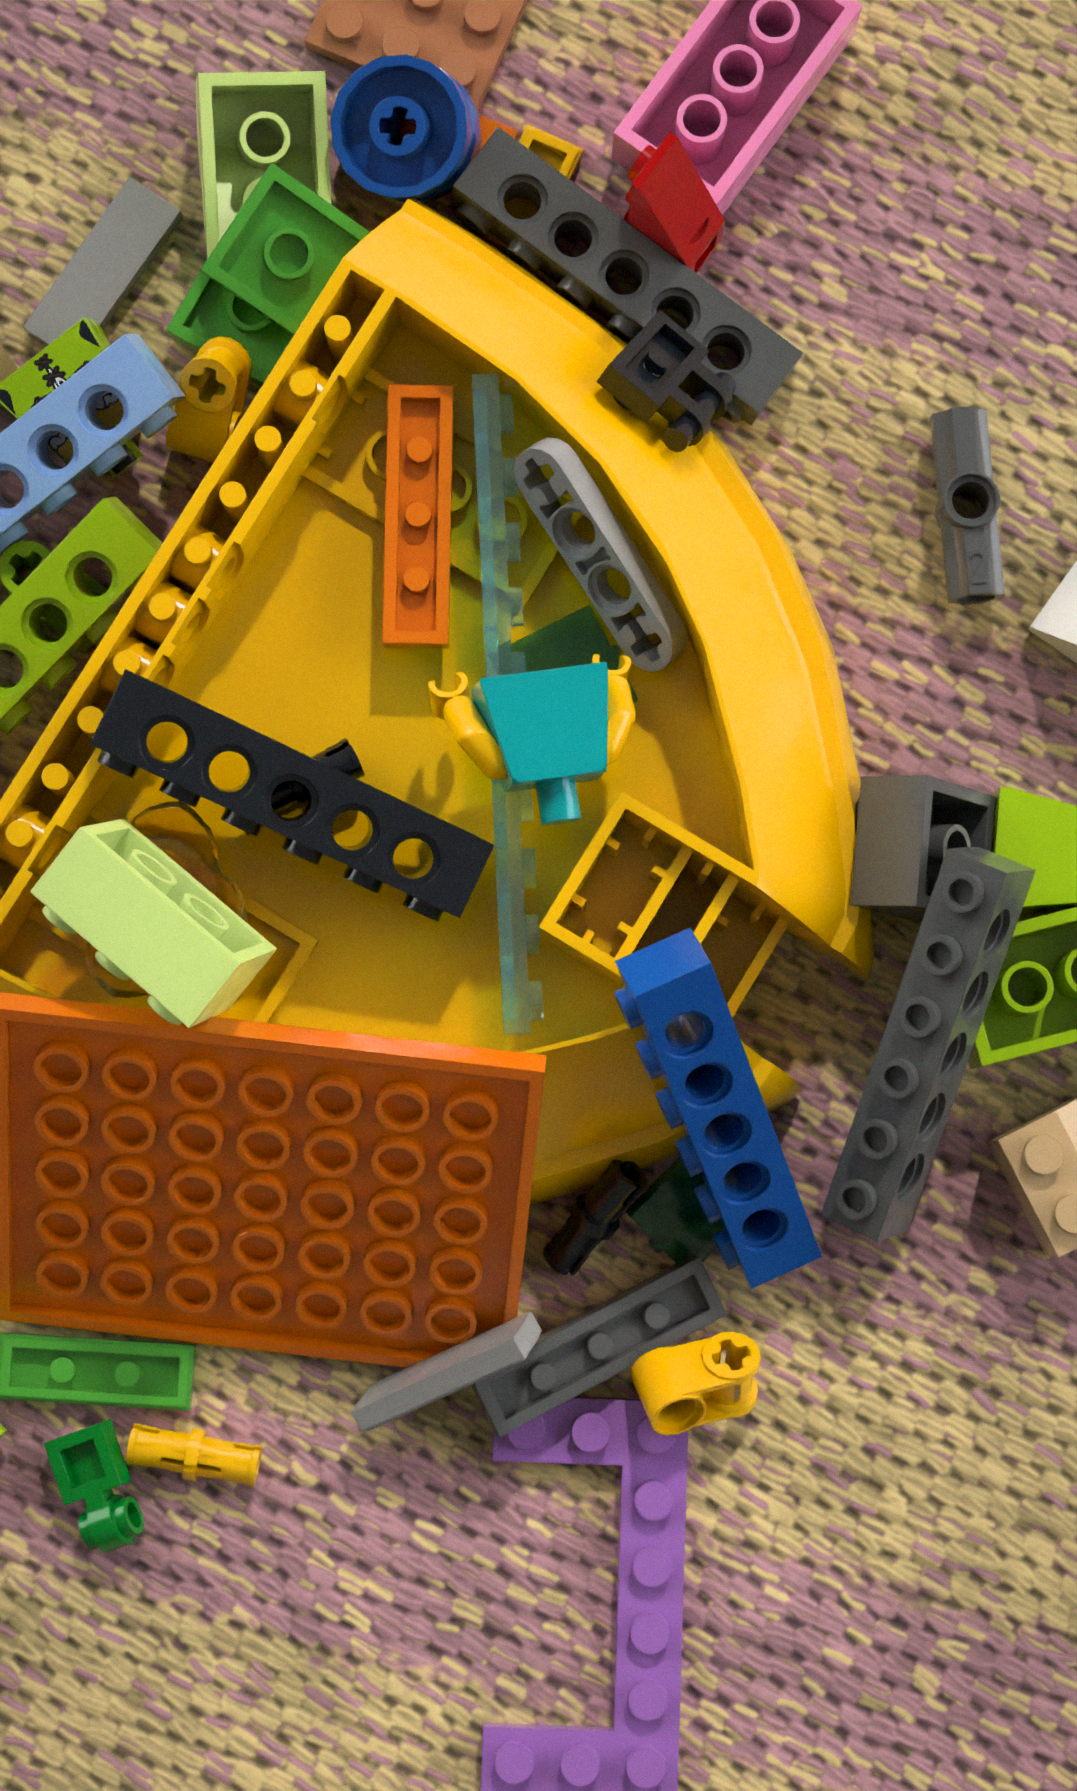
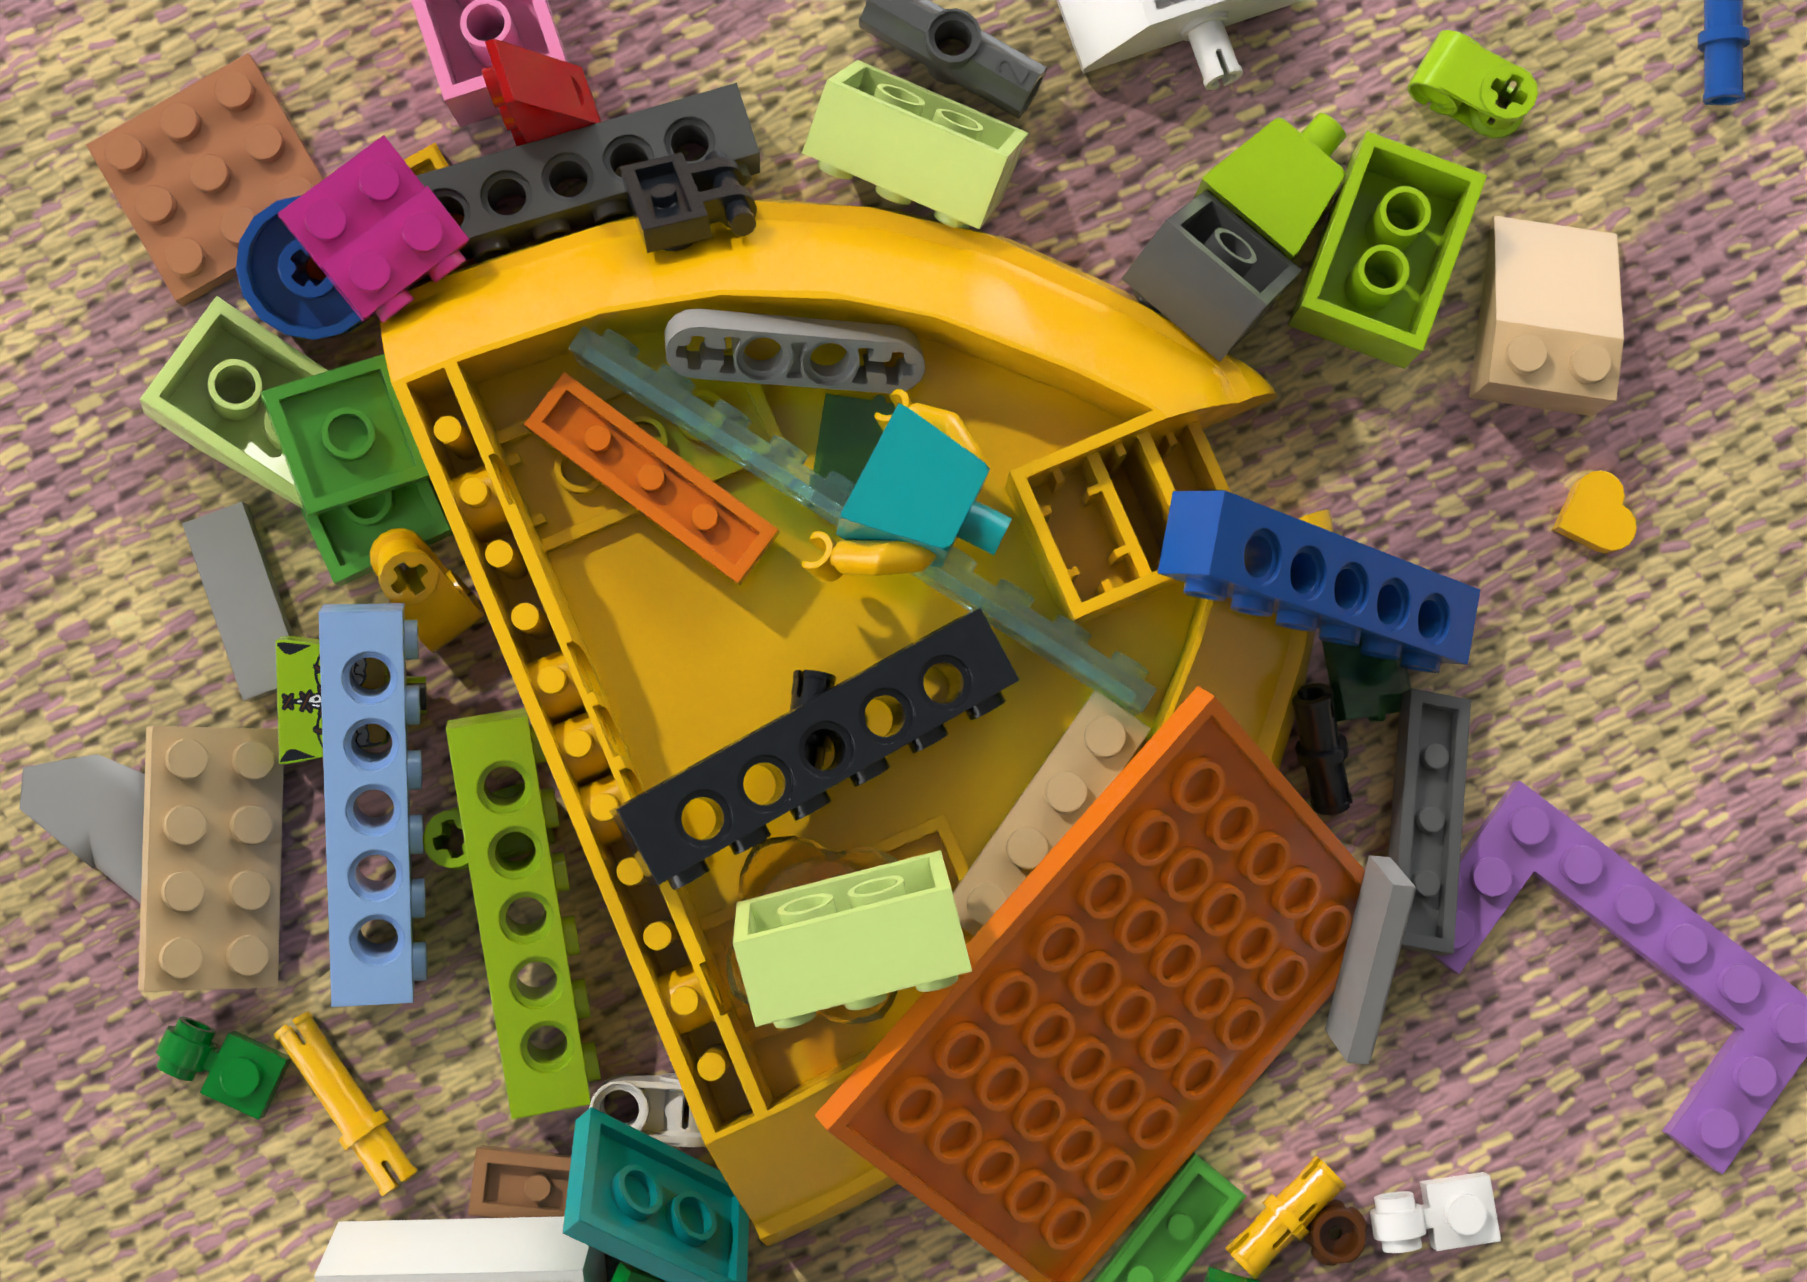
camera: 55 degrees left, 0 degrees up
(206, 1522) = (1351, 1239): none -> reddish brown plate
(296, 1592) = (1454, 1210): none -> white plate
(421, 1014) = (1061, 791): none -> tan plate
(462, 157) = (376, 231): none -> dark pink plate
(691, 1387) = (1513, 761): yellow piece -> none
(855, 532) = (913, 144): none -> yellowish green brick
(927, 1041) = (1375, 377): dark grey brick -> none
(961, 1314) = (1596, 514): none -> yellow tile

